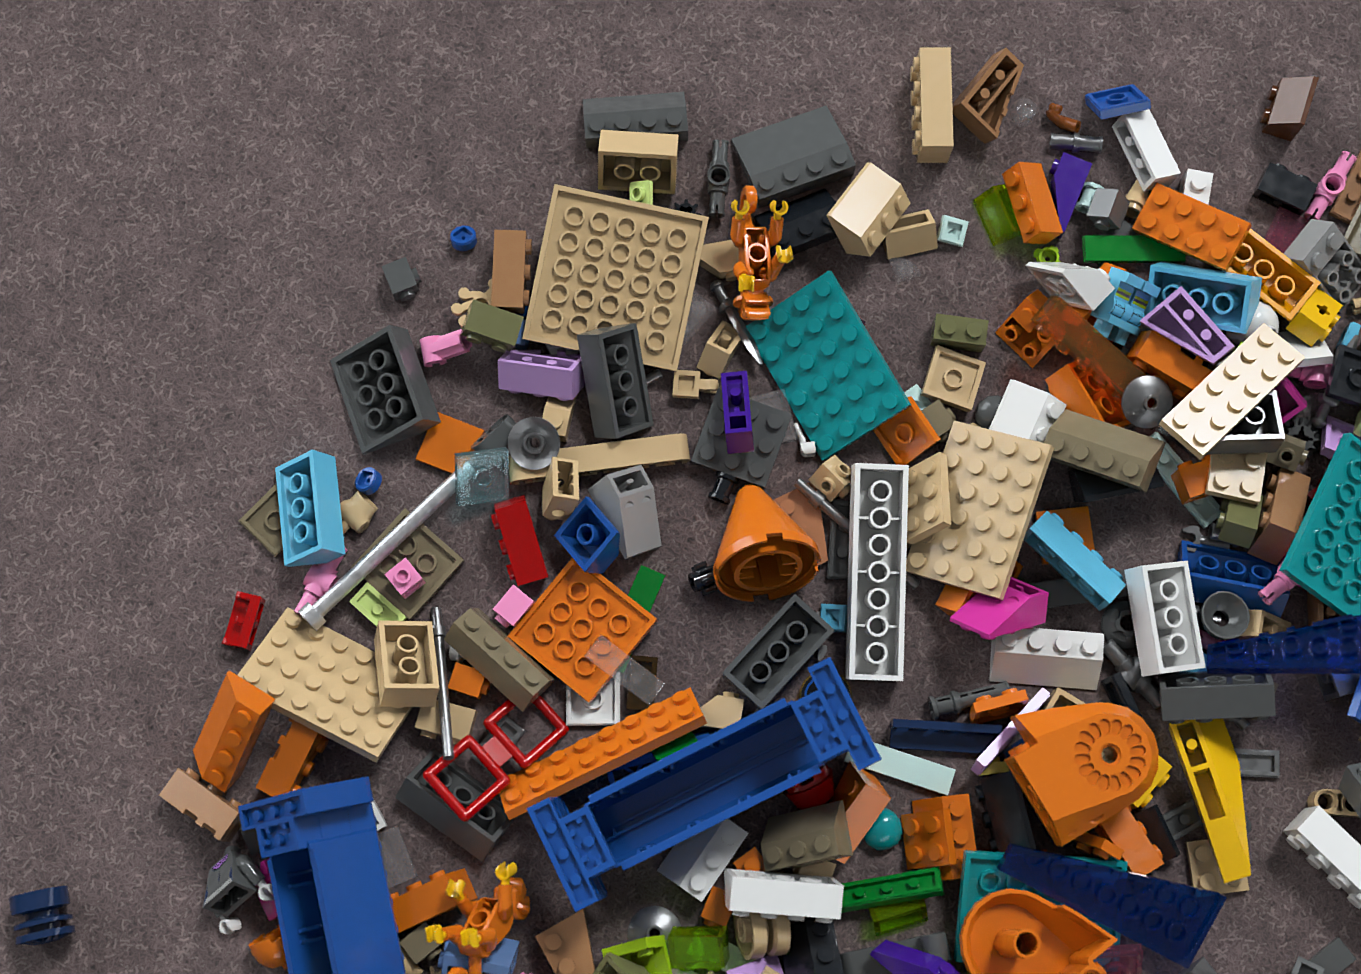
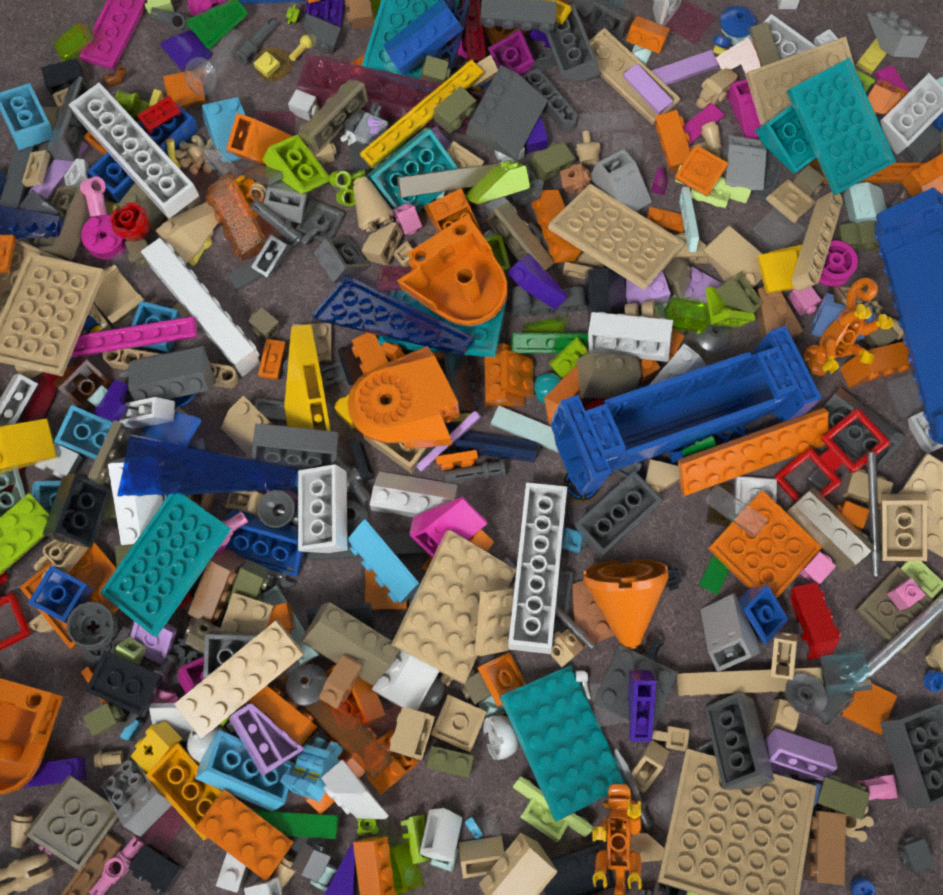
camera: 175 degrees left, 5 degrees down
(850, 282) = (539, 815): none -> yellowish green bracket
(859, 870) = (566, 359): none -> lime plate
(902, 364) = (501, 737): none -> white cylinder
(925, 266) = (473, 827): none -> medium azure tile
(960, 251) = (441, 835): none -> white brick
(986, 247) = (416, 829): none -> lime plate
(1011, 351) = (411, 733): none -> tan slope
(1108, 402) = (341, 681): none -> medium nougat slope
(1267, 834) = (272, 359): none -> orange plate
(1283, 737) = (241, 421): none -> tan slope
(1289, 884) = (263, 324): none -> dark tan brick

